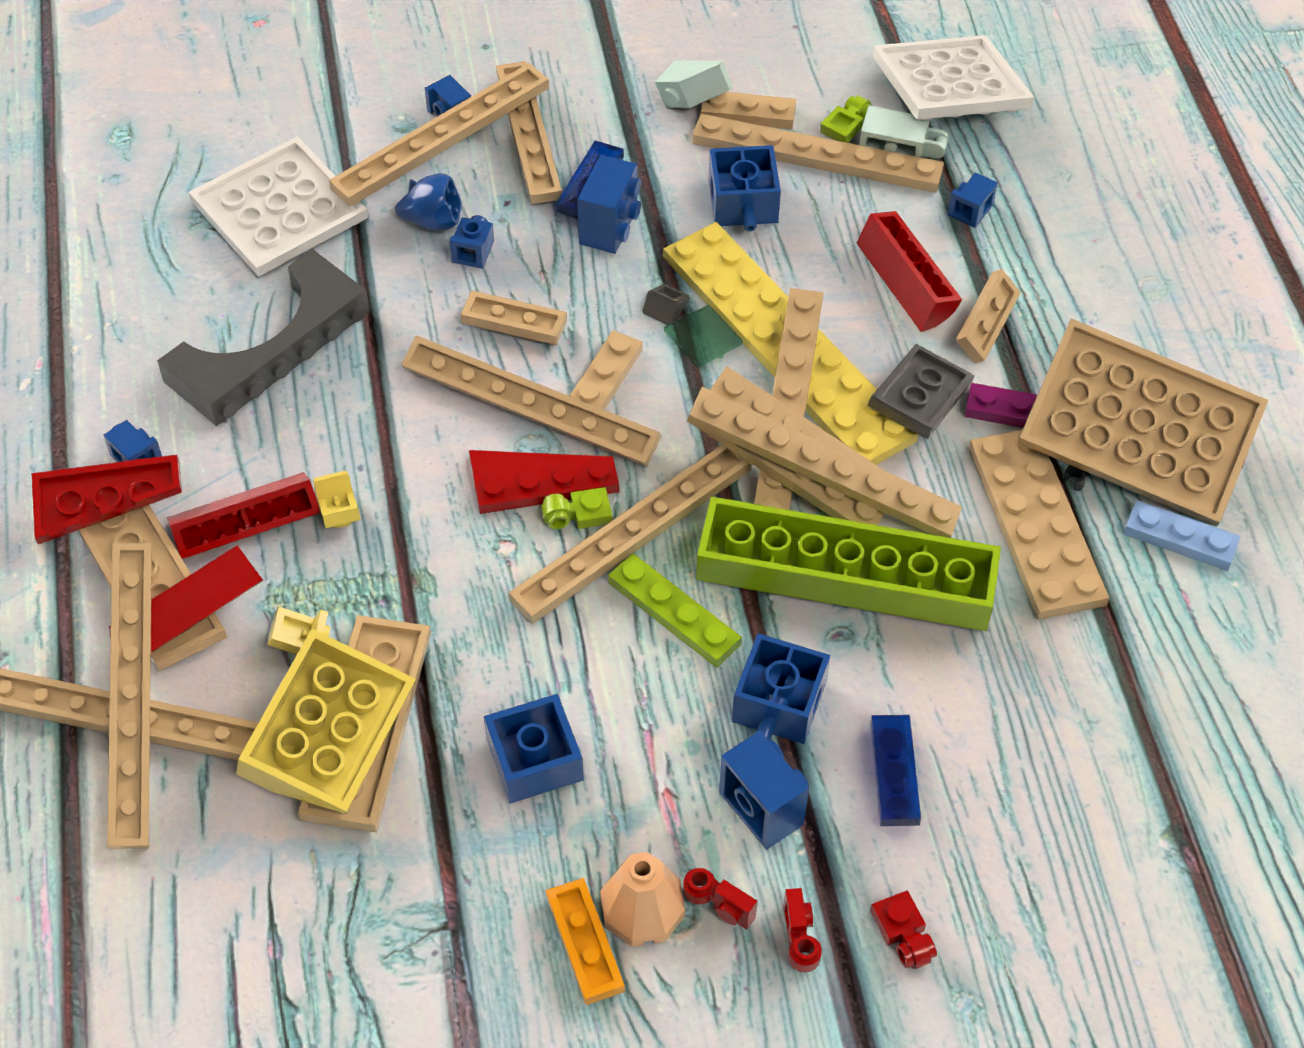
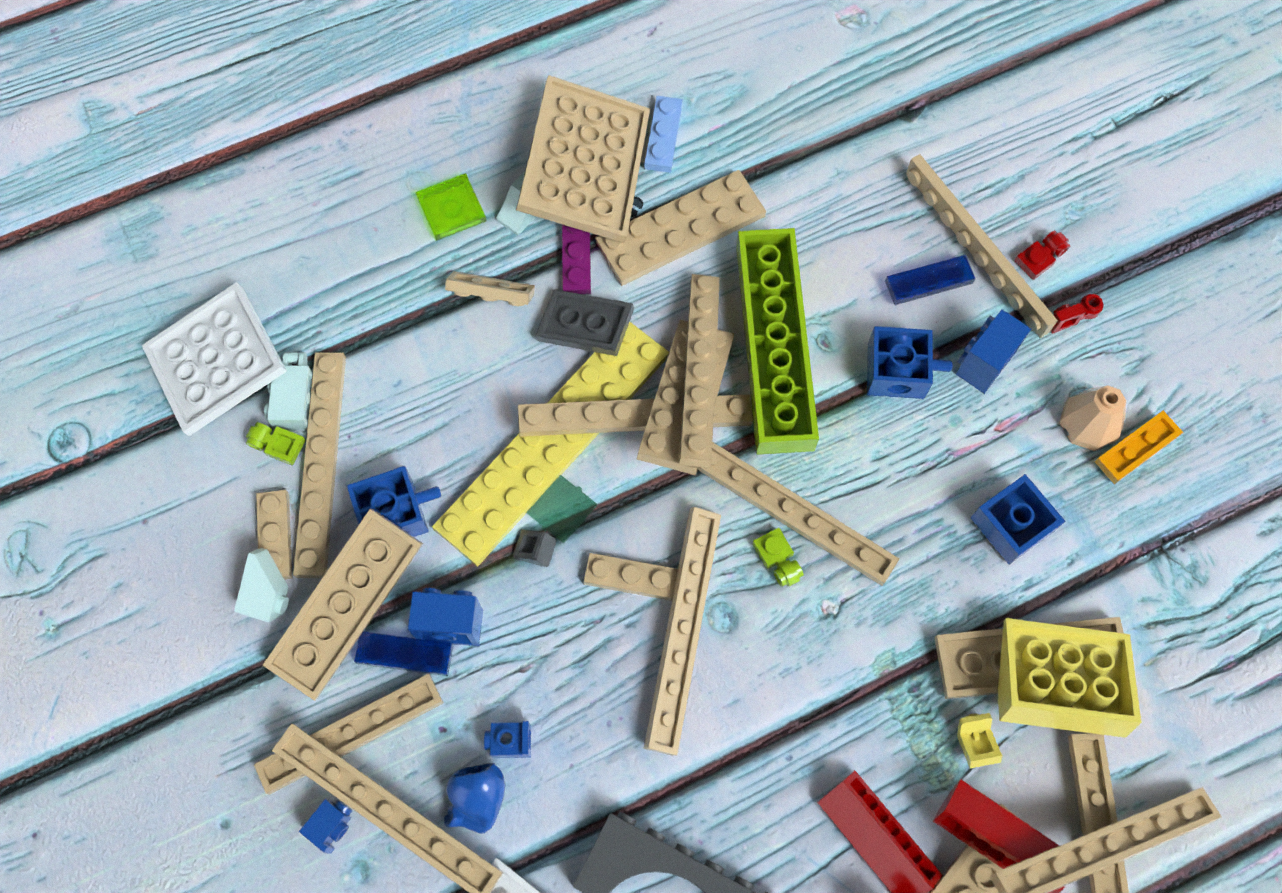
camera: 105 degrees left, 15 degrees up
(336, 500) = (843, 756): light yellow bracket -> none
(514, 317) = (592, 673): tan plate -> none
(526, 479) = (760, 607): red wing -> none
(653, 131) = (343, 604): none -> tan plate
(675, 610) = (847, 460): lime plate -> none
(729, 901) = (1076, 357): red plate -> none
(908, 270) = (453, 357): red brick -> none
(946, 840) = (982, 248): none -> tan plate
(972, 200) = (358, 319): blue brick -> none
(1111, 304) = (451, 206): none -> clear neon green tile

